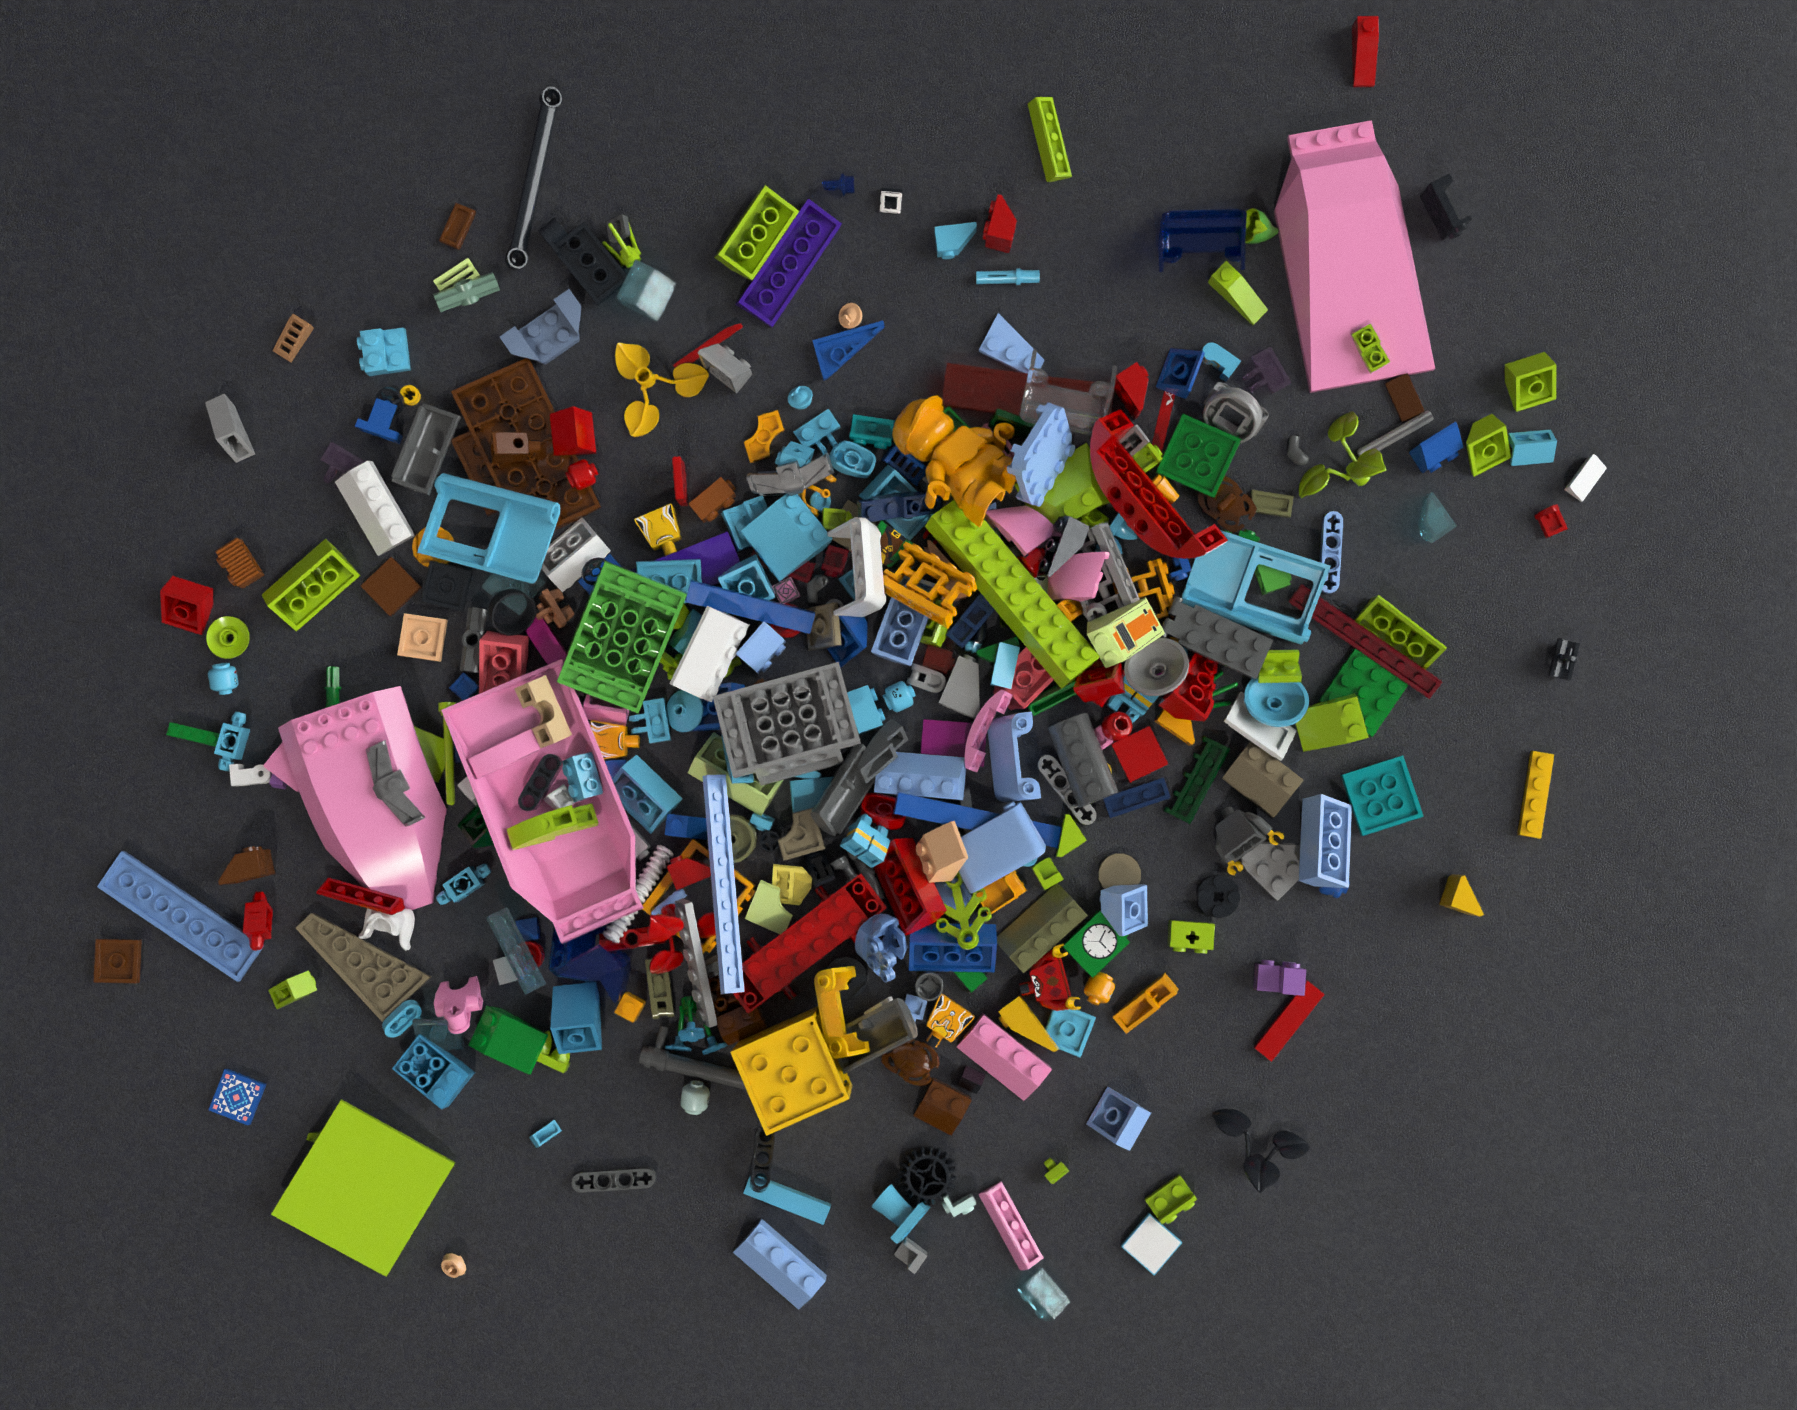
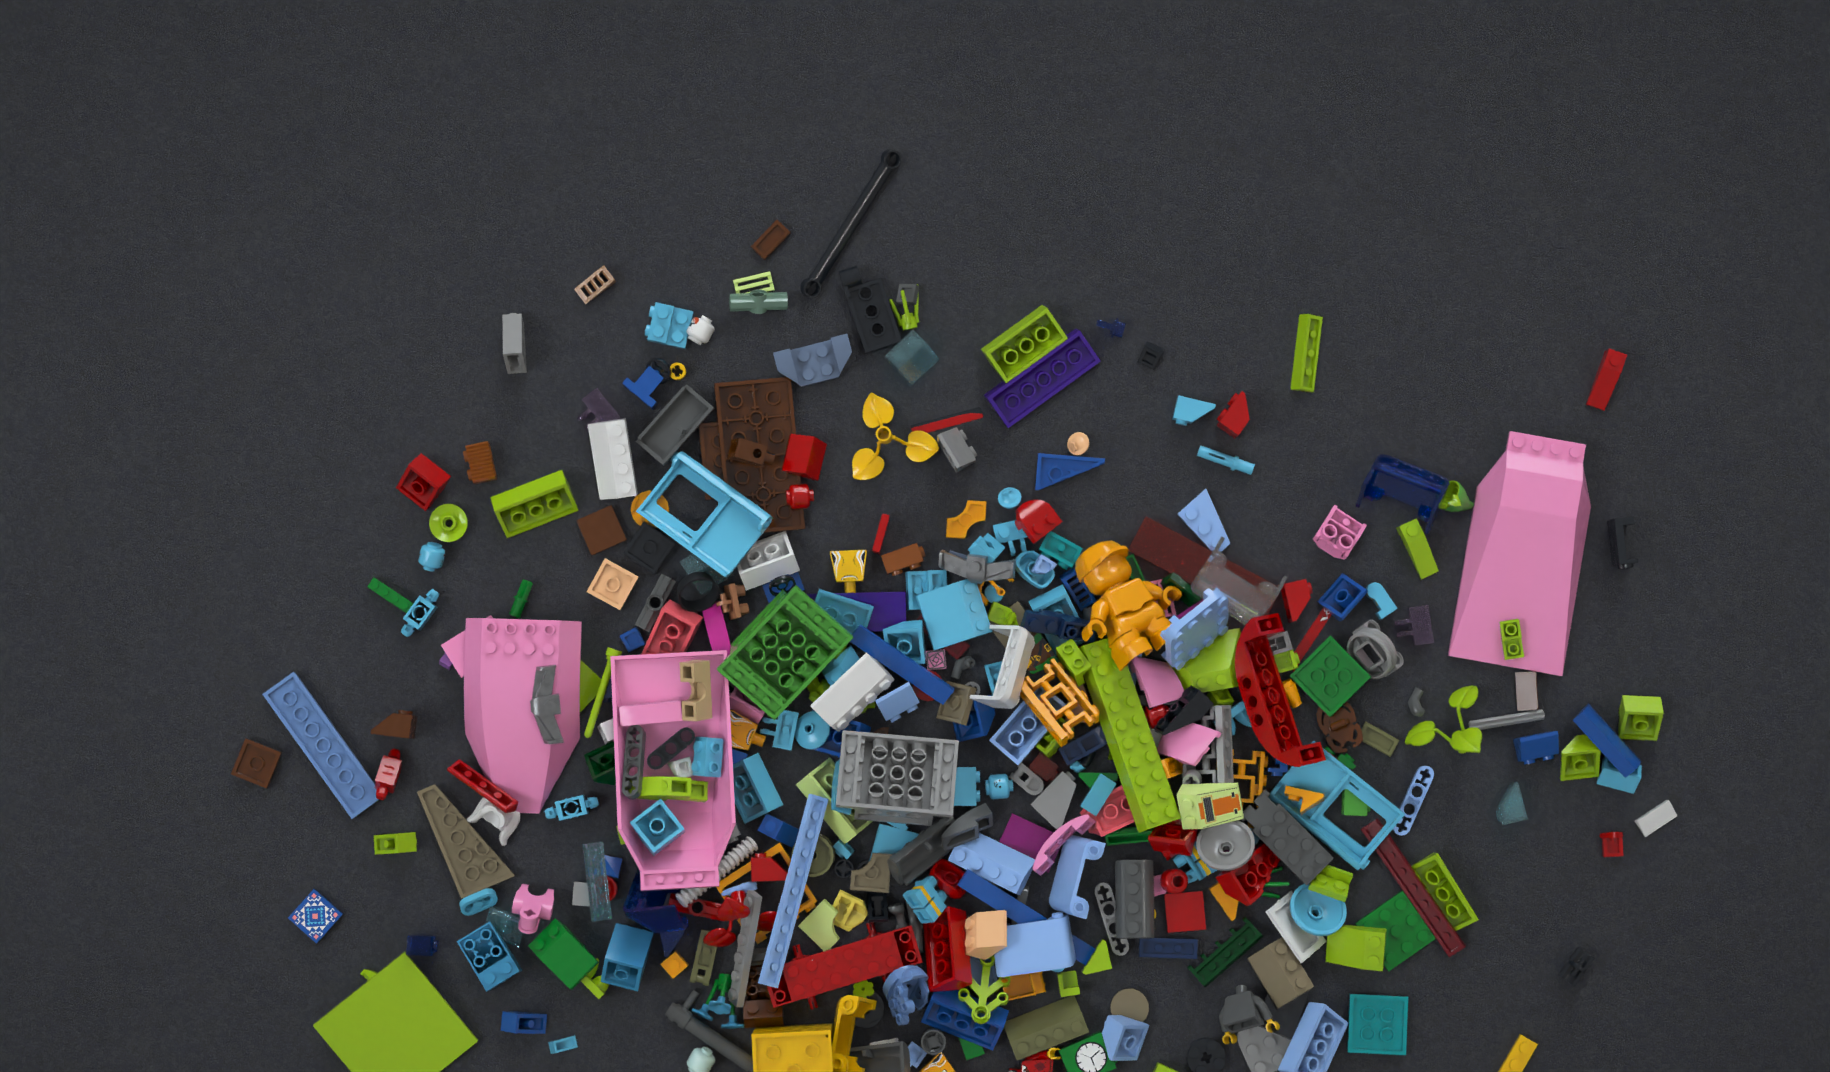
camera: 15 degrees right, 0 degrees up
(253, 776) = (431, 650): white leg -> none
(356, 1086) = (421, 945): none -> clear blue slope
(417, 343) = (700, 330): none -> white head
(495, 1126) = (523, 1022): none -> blue slope
(508, 809) = (630, 762): none -> dark grey beam
(555, 870) = (657, 827): none -> medium azure slope
(834, 561) = (987, 650): dark red bracket -> none
(835, 407) = (1036, 519): none -> red slope
(836, 958) = (863, 989): none -> lime plant
(860, 451) = (1043, 565): none -> light blue tile
(927, 536) = (1073, 660): none -> lime bracket
(1151, 309) = (1338, 533): none -> bright pink slope
(1224, 587) = (1309, 798): none -> light orange slope
(1508, 415) = (1607, 740): none -> blue slope

